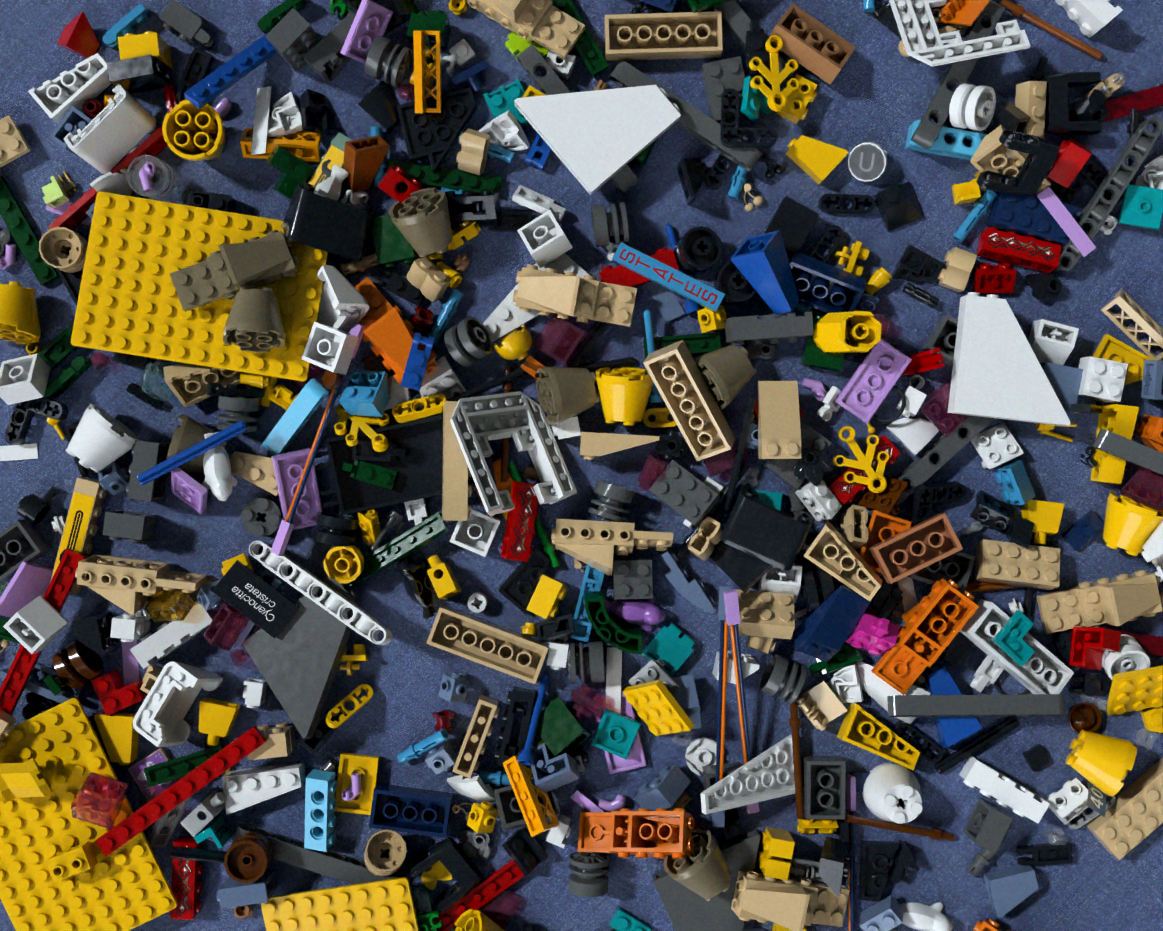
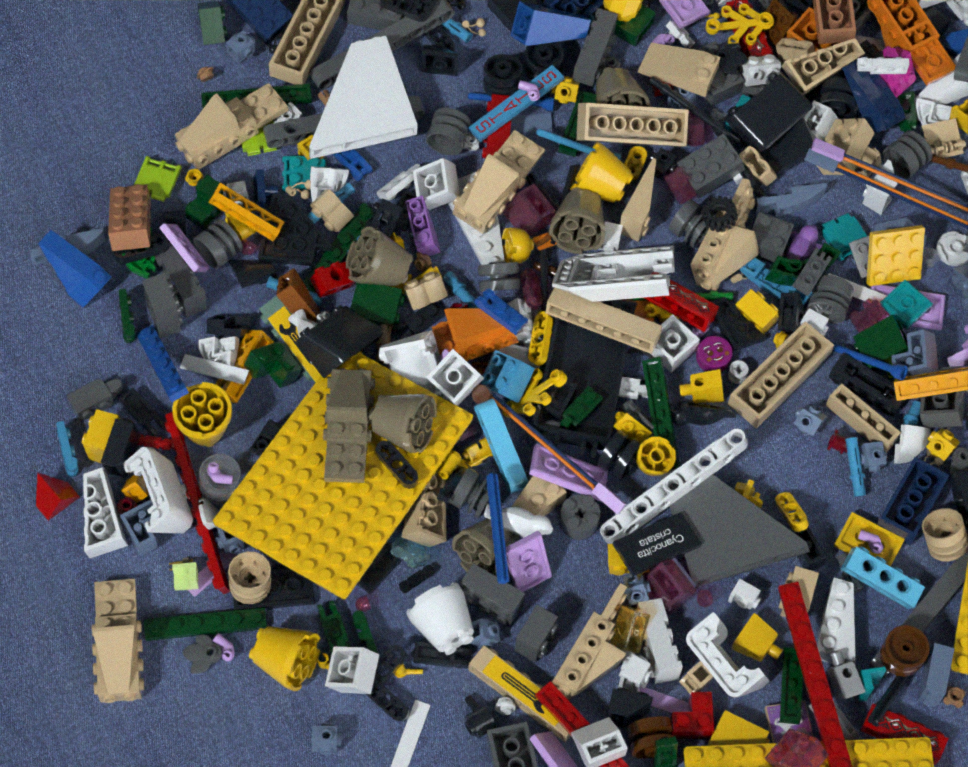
camera: 70 degrees left, 25 degrees down
(210, 334) = (397, 456): none -> black beam
(485, 573) = (714, 354): none -> magenta head
(486, 371) = (531, 288): none -> clear pink beam
(487, 117) = (305, 194): none -> tan piece
(494, 246) = (422, 226): none -> medium lavender slope
(602, 636) = (811, 272): none -> dark grey hinge
(621, 516) = (720, 222): none -> black tyre
(684, 287) = (532, 90): none -> lavender arm
(861, 622) = (883, 65): none -> white hinge

